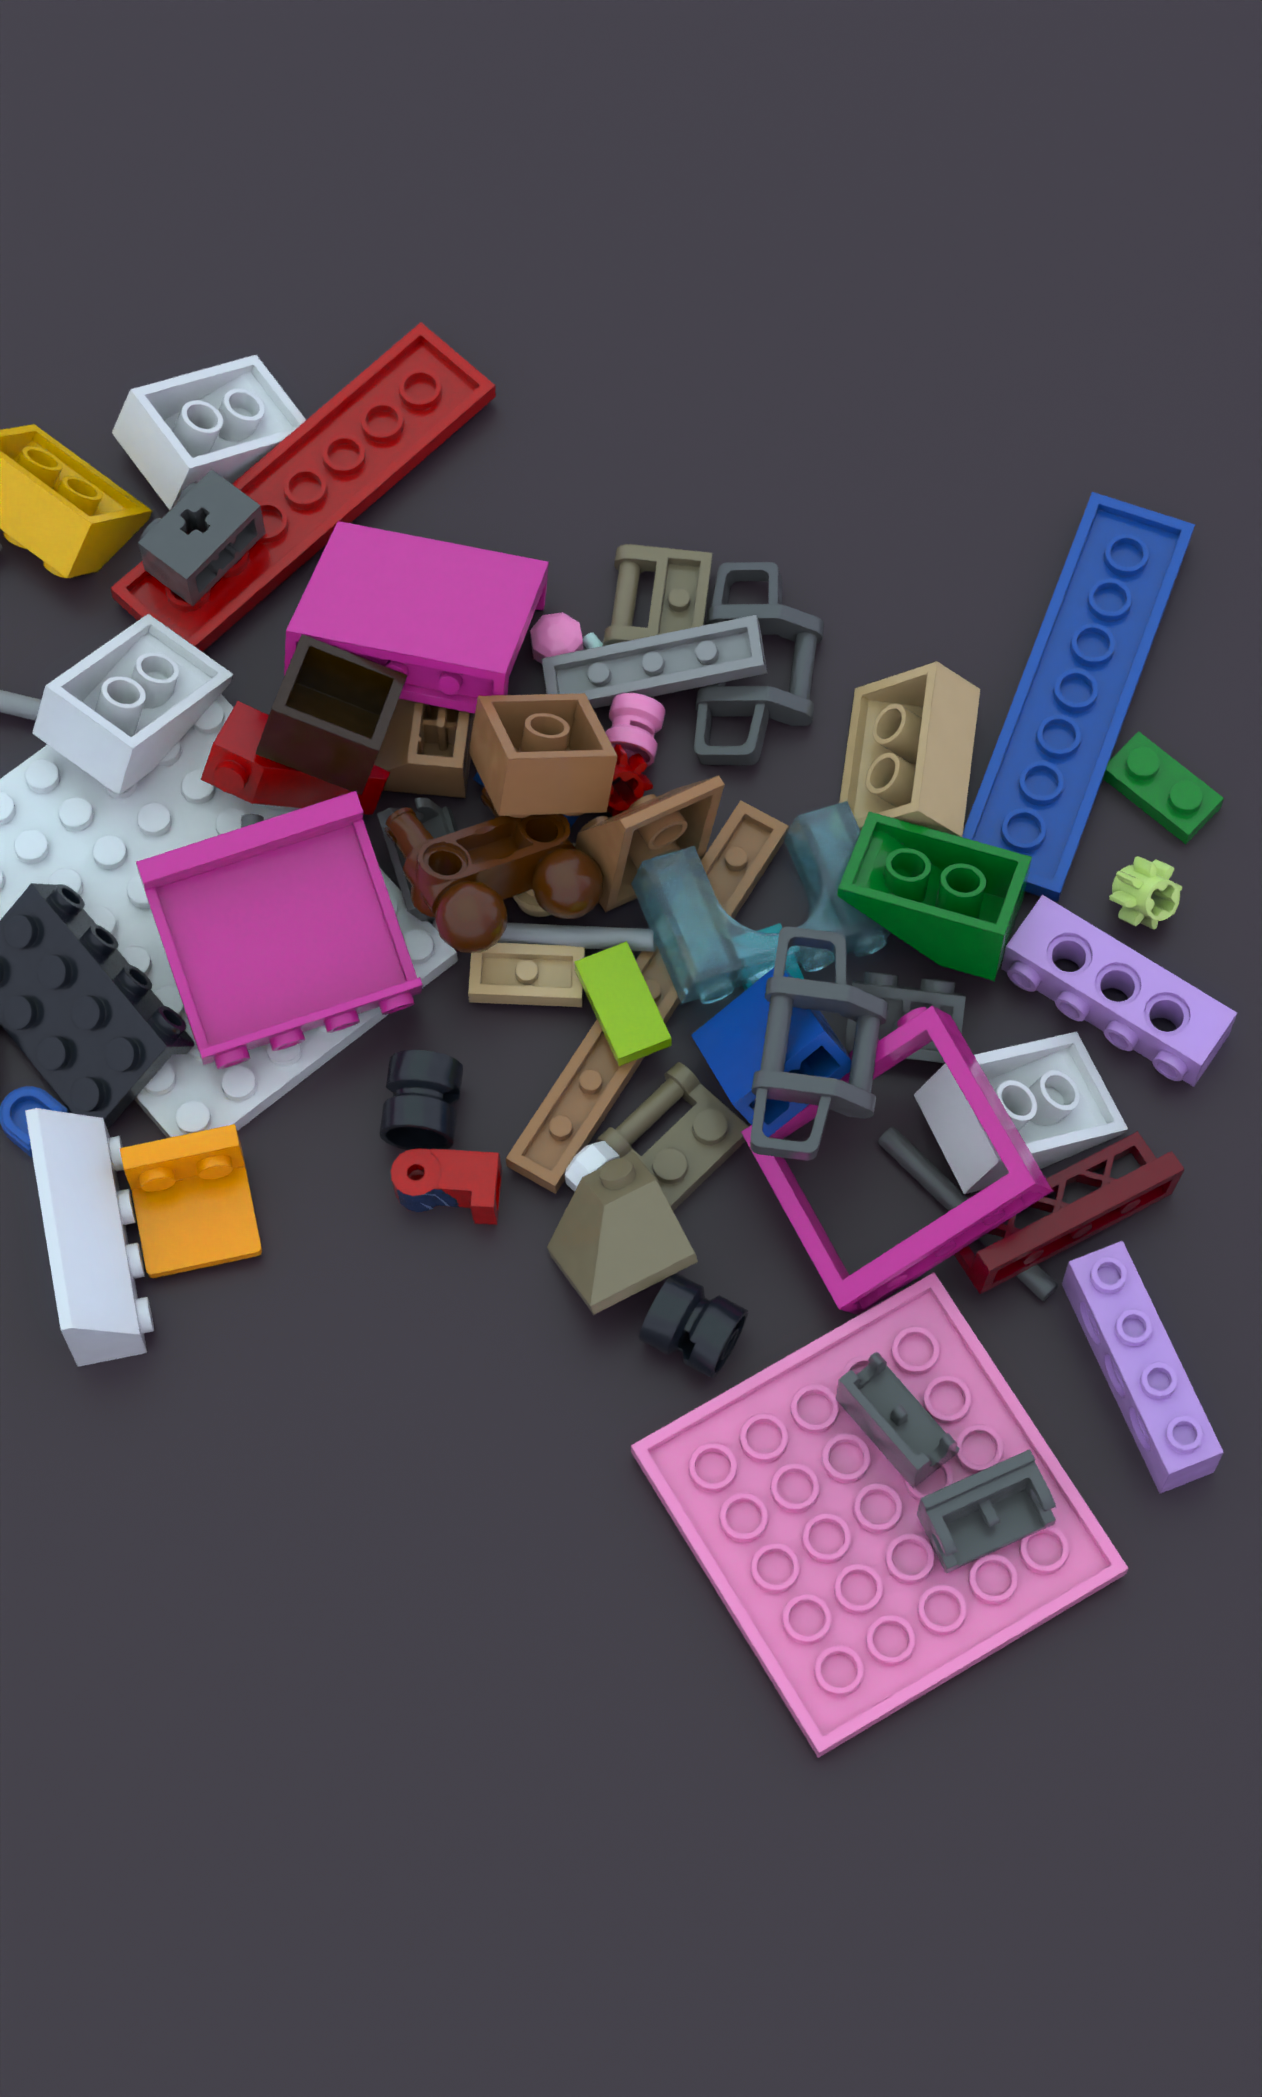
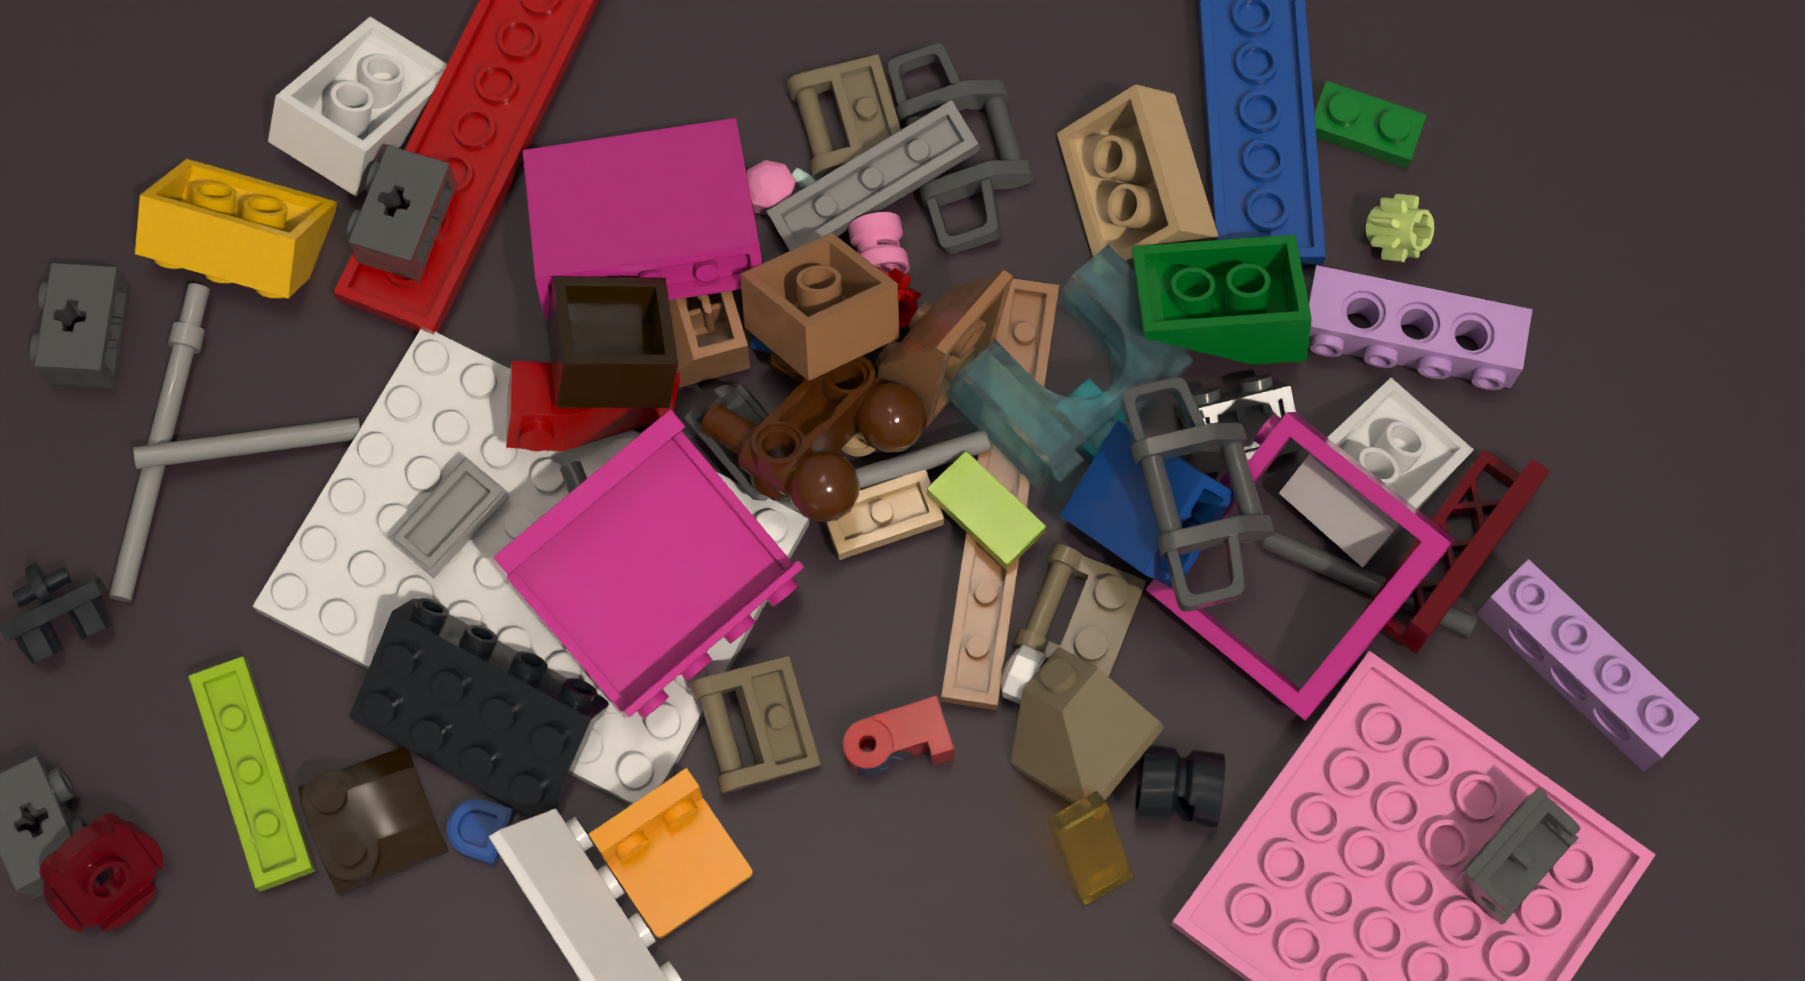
camera: 25 degrees left, 5 degrees up
(124, 825) = (449, 517): none -> light grey tile
(129, 703) = (404, 398): white slope -> none
(339, 1119) = (772, 718): none -> dark tan plate
(421, 1108) = (838, 663): black wheel -> none
(580, 1345) = (1090, 848): none -> clear yellow tile
(895, 1421) = (1402, 805): dark grey hinge -> none

